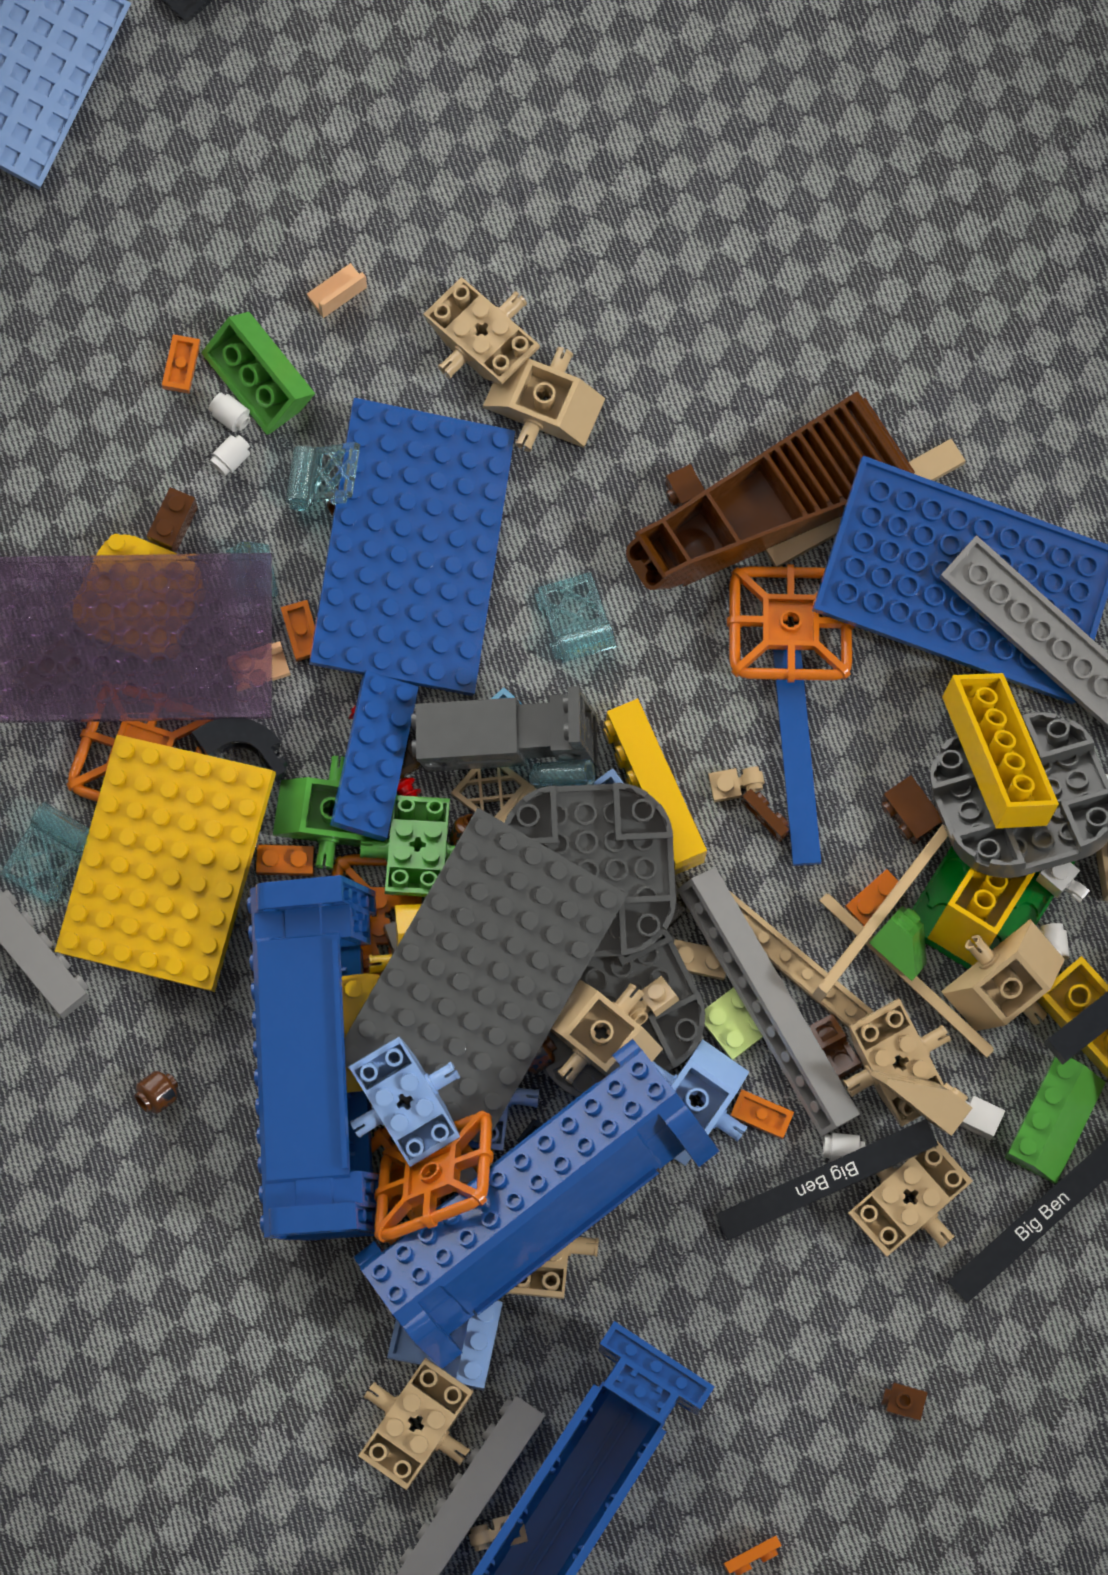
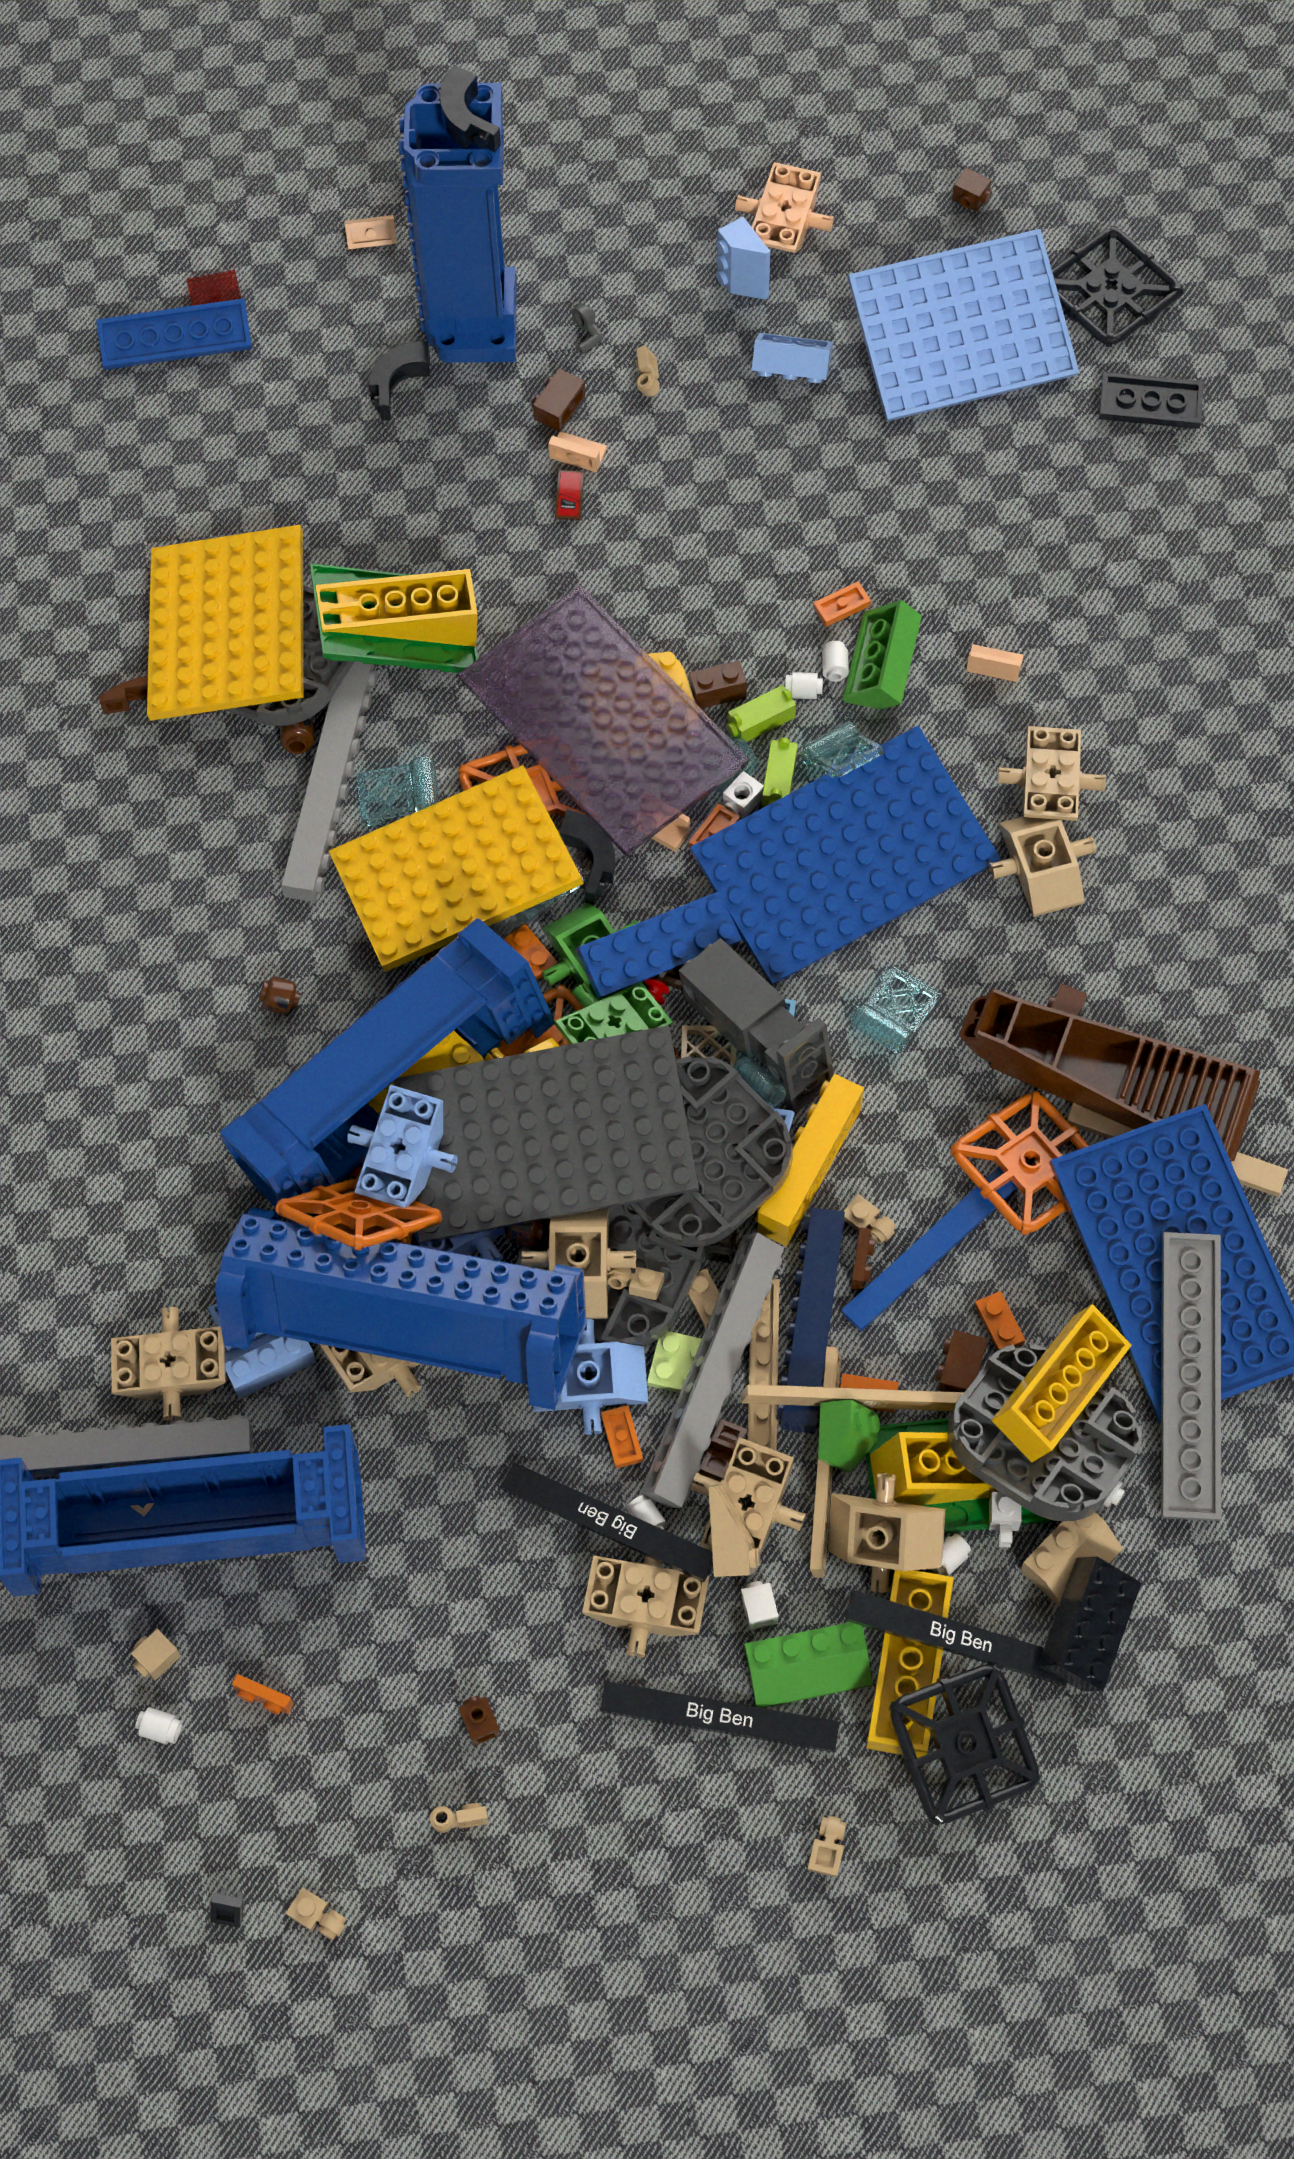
camera: 55 degrees right, 10 degrees down
(228, 509) = (761, 714): none -> lime brick
(285, 572) = (744, 786): none -> white brick
(296, 539) = (779, 770): none -> lime brick
(781, 889) = (813, 1314): none -> dark blue brick
(898, 753) = (999, 1321): none -> orange plate
(974, 1465) = (469, 1816): none -> tan plate

